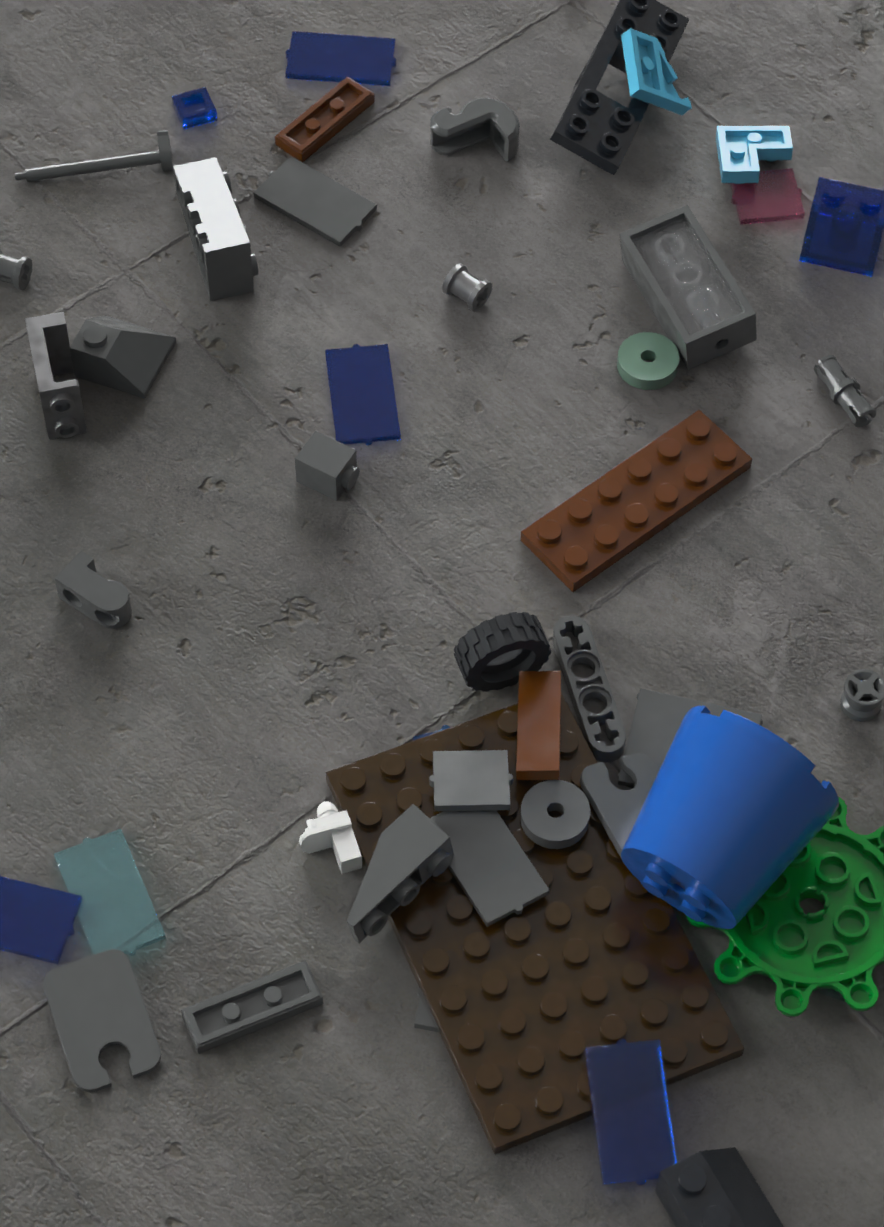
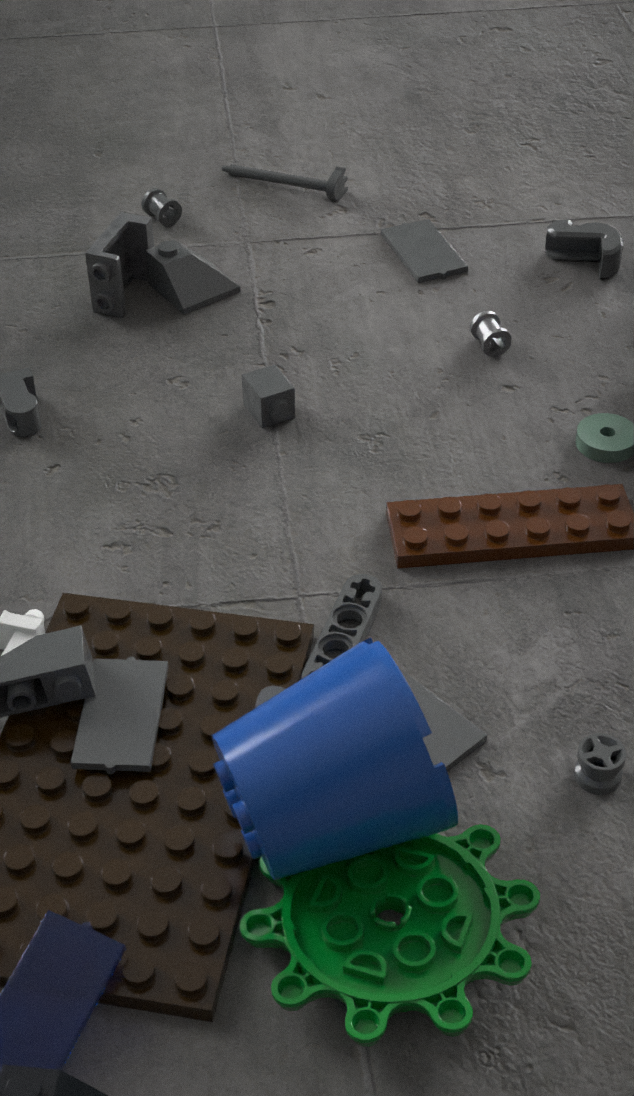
camera: 35 degrees right, 15 degrees down
(194, 108) = (384, 173): clear blue tile -> none
(215, 228) = (324, 233): wedge -> none
(324, 119) = (475, 208): reddish brown tile -> none
(338, 56) = (521, 182): clear blue piece -> none
(362, 394) = (346, 371): clear blue piece -> none
(471, 780) = (164, 648): dark grey piece -> none
(500, 649) = (285, 542): black tyre -> none
(539, 725) = (258, 634): reddish brown tile -> none
(550, 831) = (205, 693): dark grey piece -> none

